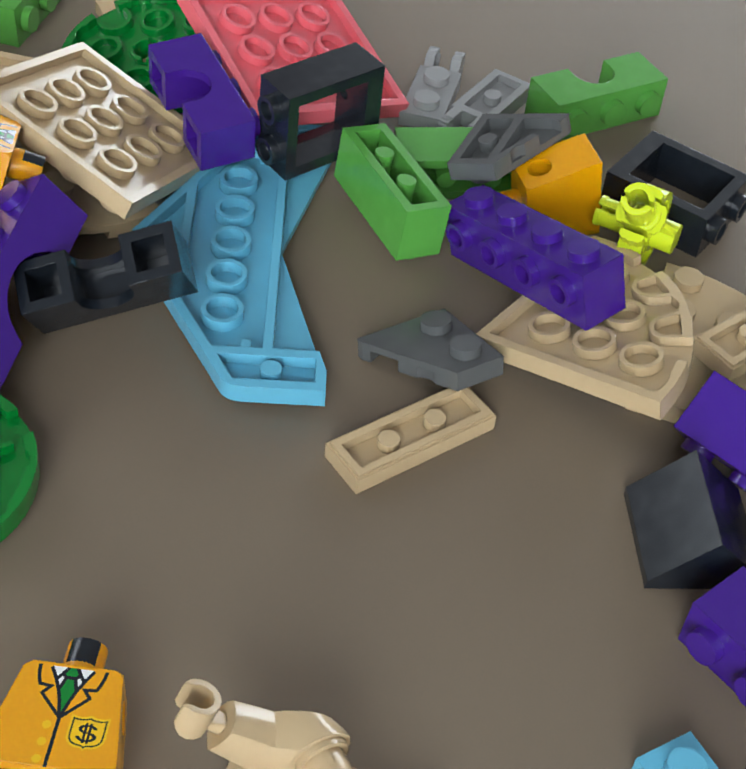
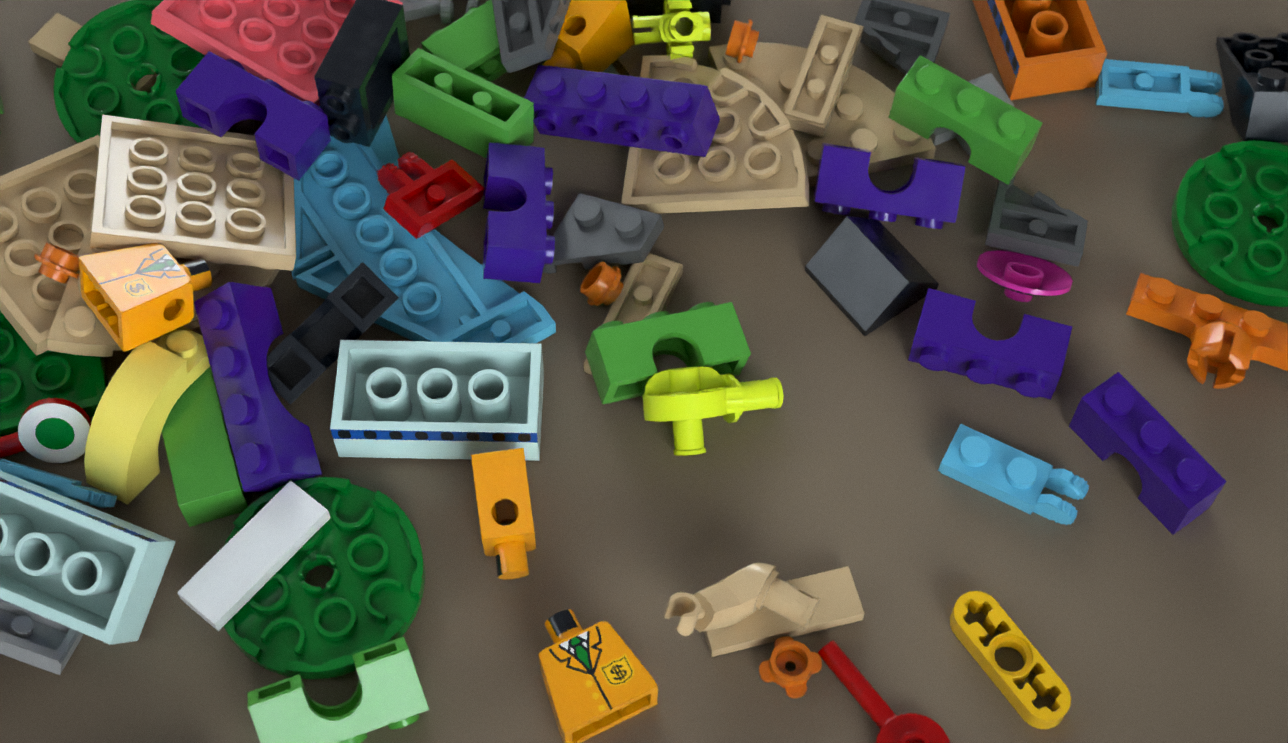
camera: 30 degrees left, 15 degrees up
(125, 509) = (503, 497): none -> light orange torso
(157, 390) = (437, 399): none -> light aqua brick
(300, 232) = (426, 196): none -> red hinge
(349, 302) = (517, 239): none -> dark purple arch
(401, 389) = (602, 284): none -> orange plate
(410, 521) = (699, 393): none -> neon yellow pin
(457, 477) = (702, 337): none -> bright green arch
(699, 262) = (742, 40): none -> orange plate

